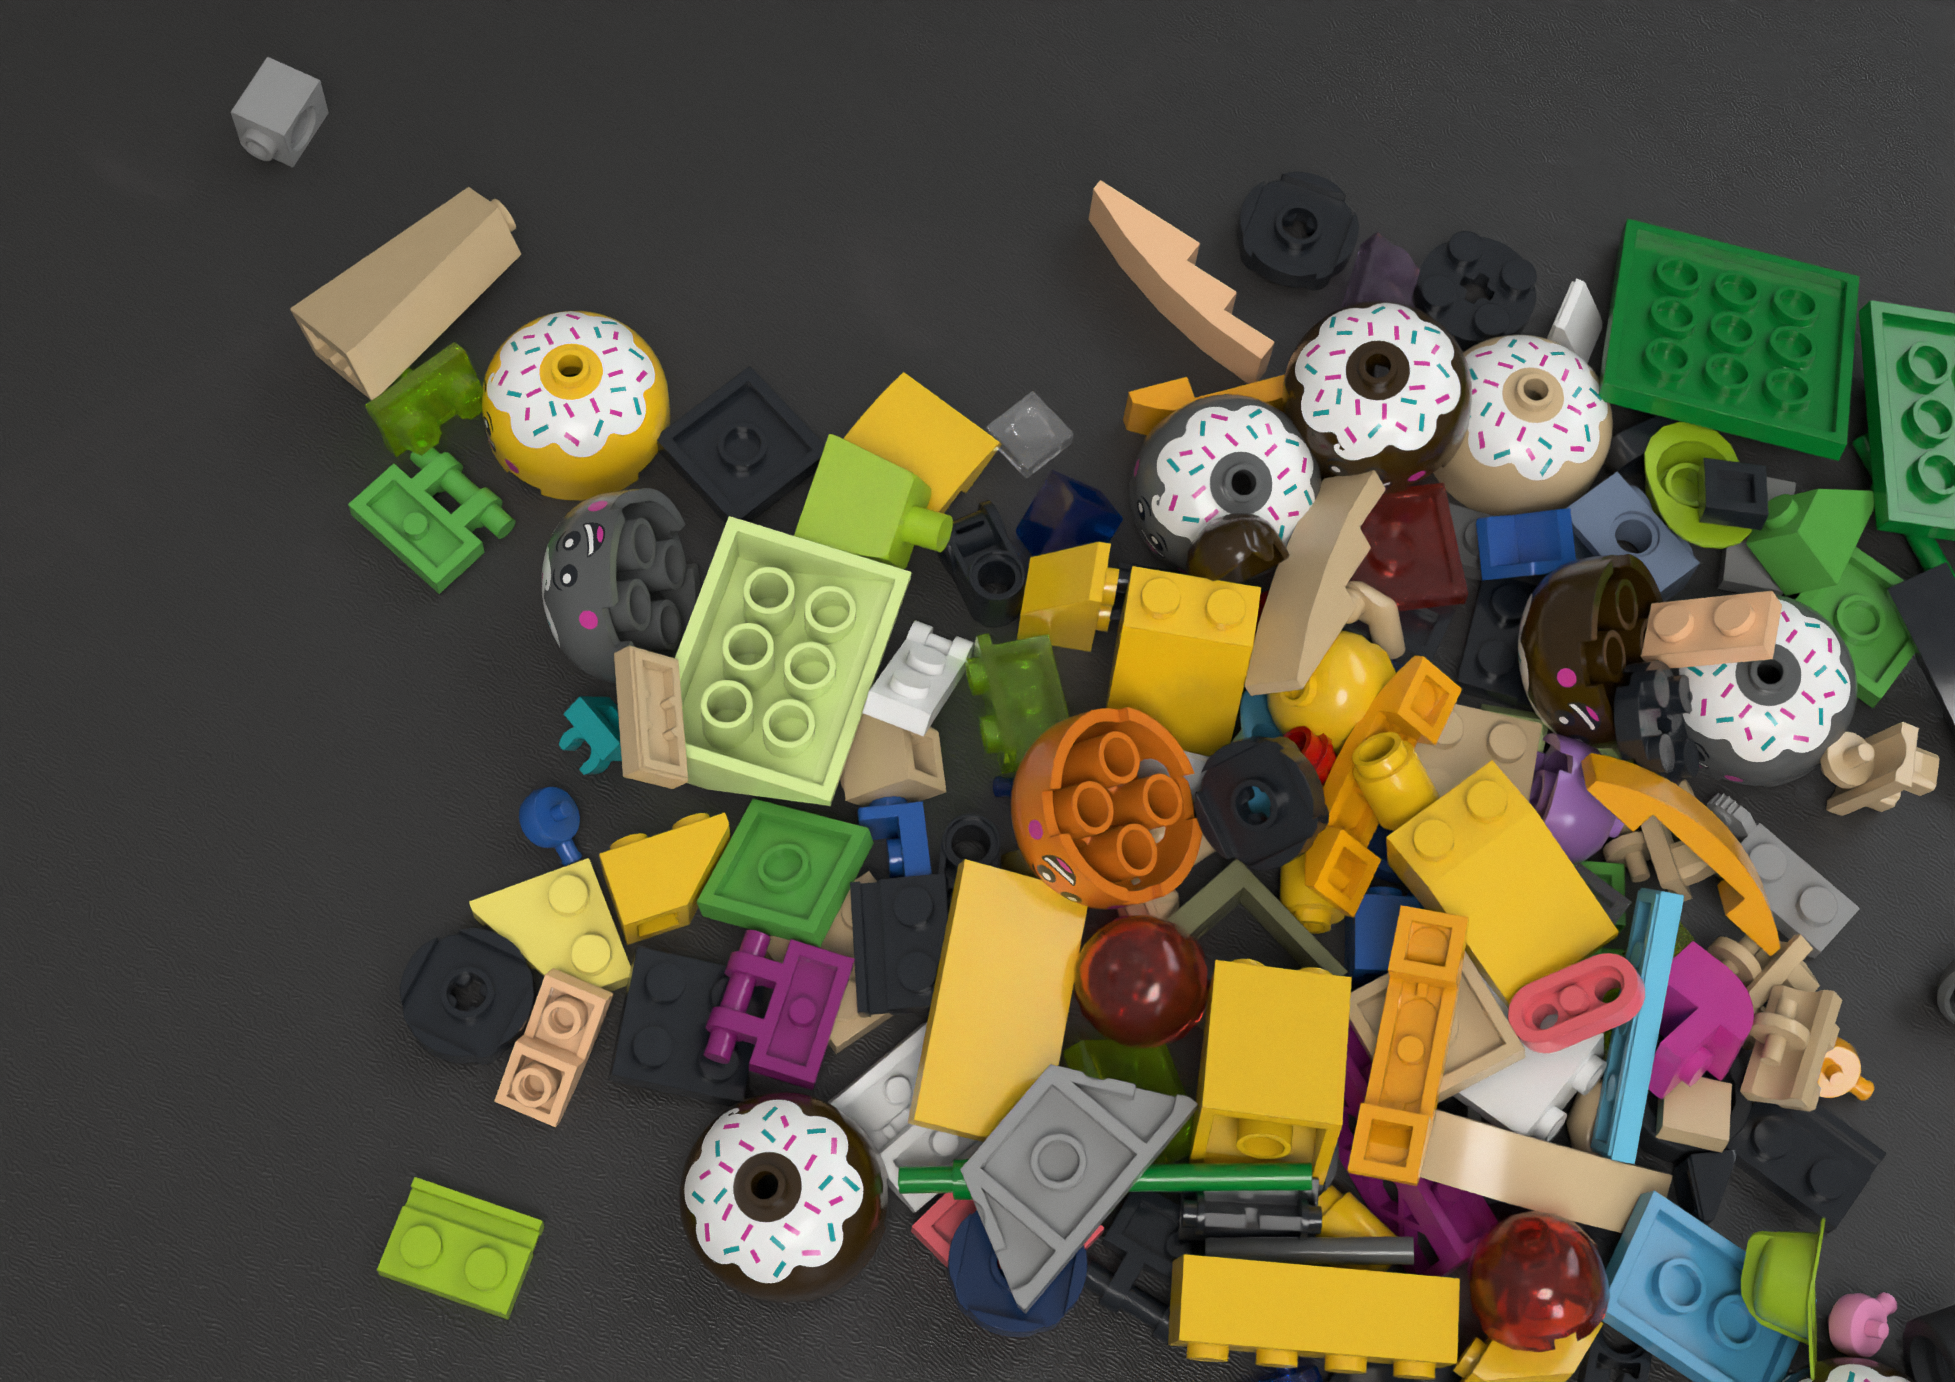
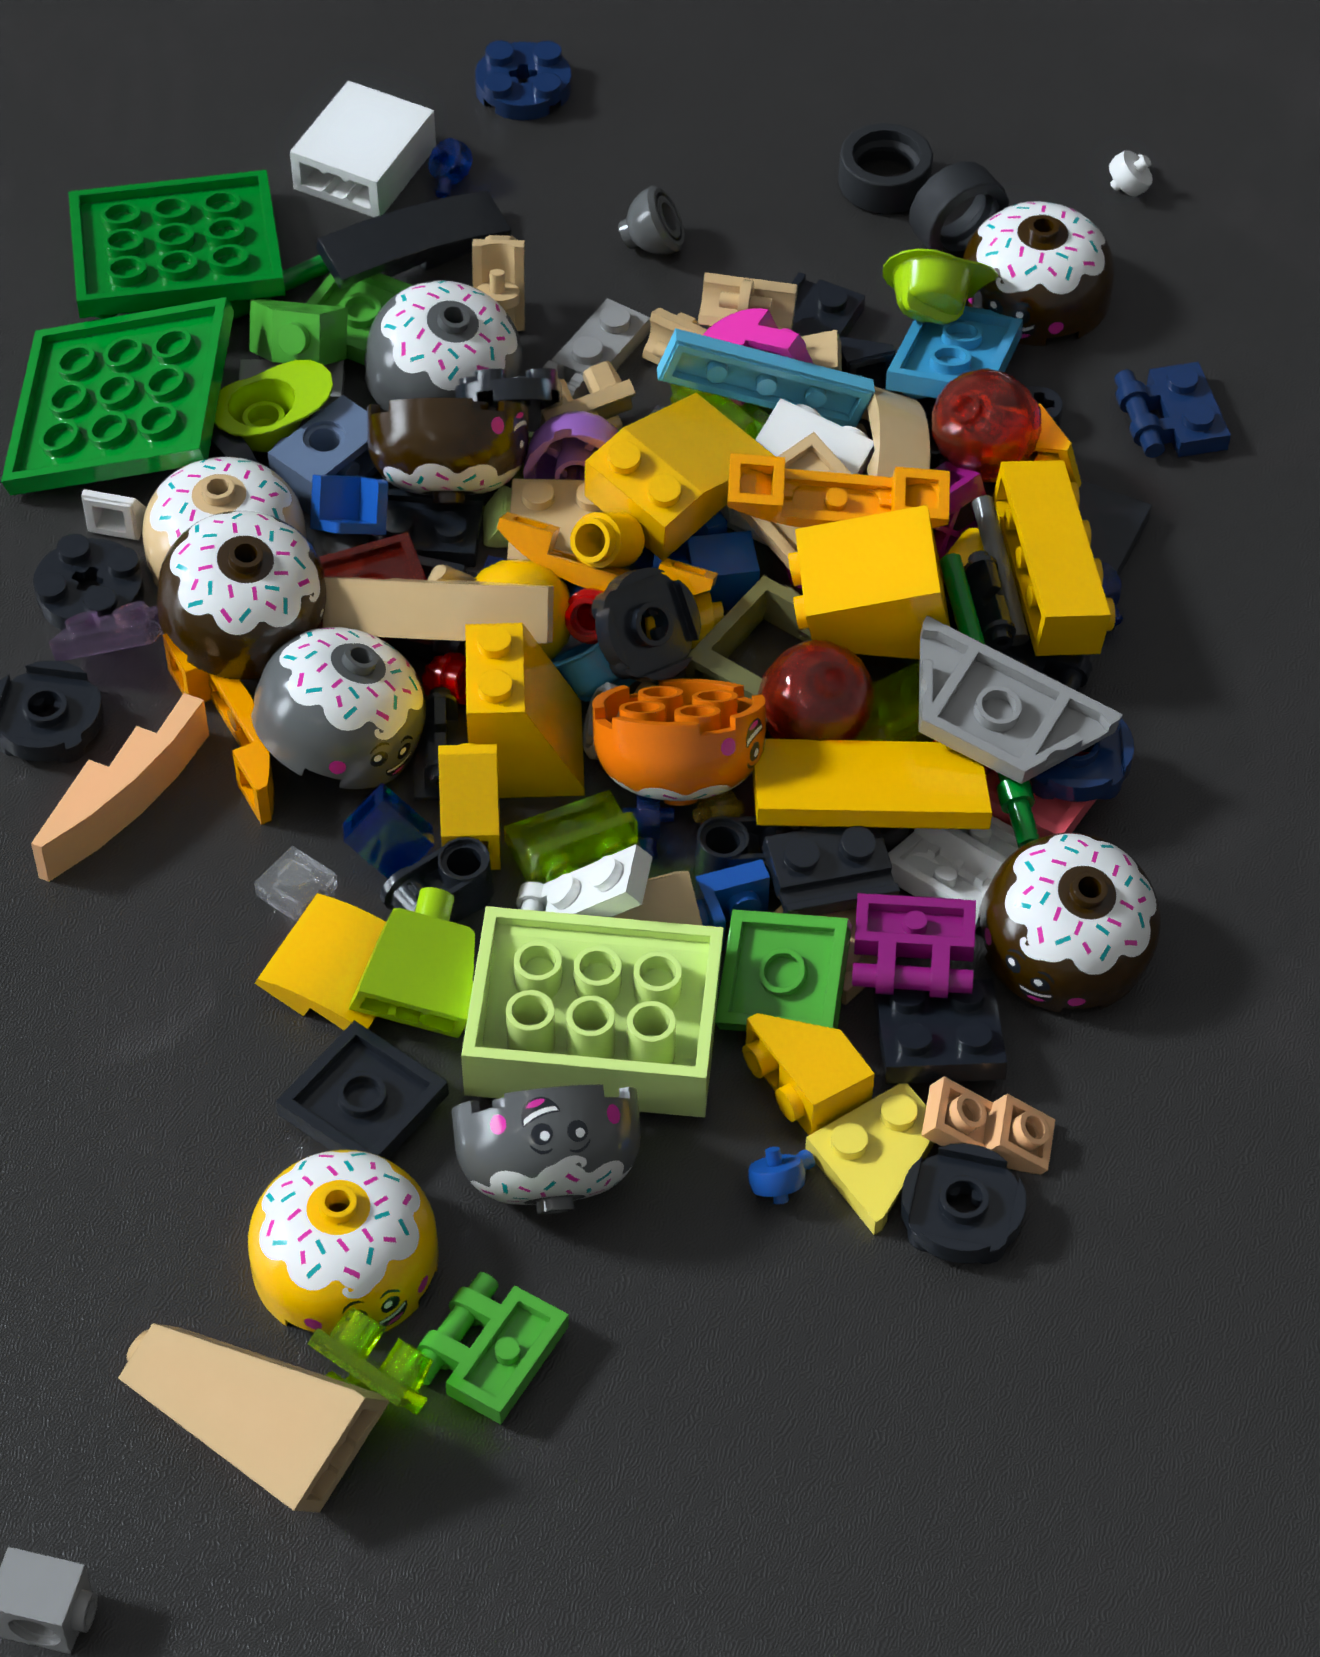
camera: 95 degrees left, 15 degrees down
(461, 1248) = (1185, 1165): lime plate -> none
(597, 724) = (681, 1146): teal tile -> none
(650, 717) = (691, 1058): tan plate -> none
(1235, 549) = (429, 657): dark brown hair -> none
(1577, 1000) = (771, 403): coral plate -> none
(1638, 793) = (587, 373): light orange slope -> none
(1713, 630) = (423, 350): light nougat plate -> none
(1732, 494) = (285, 364): black plate -> none

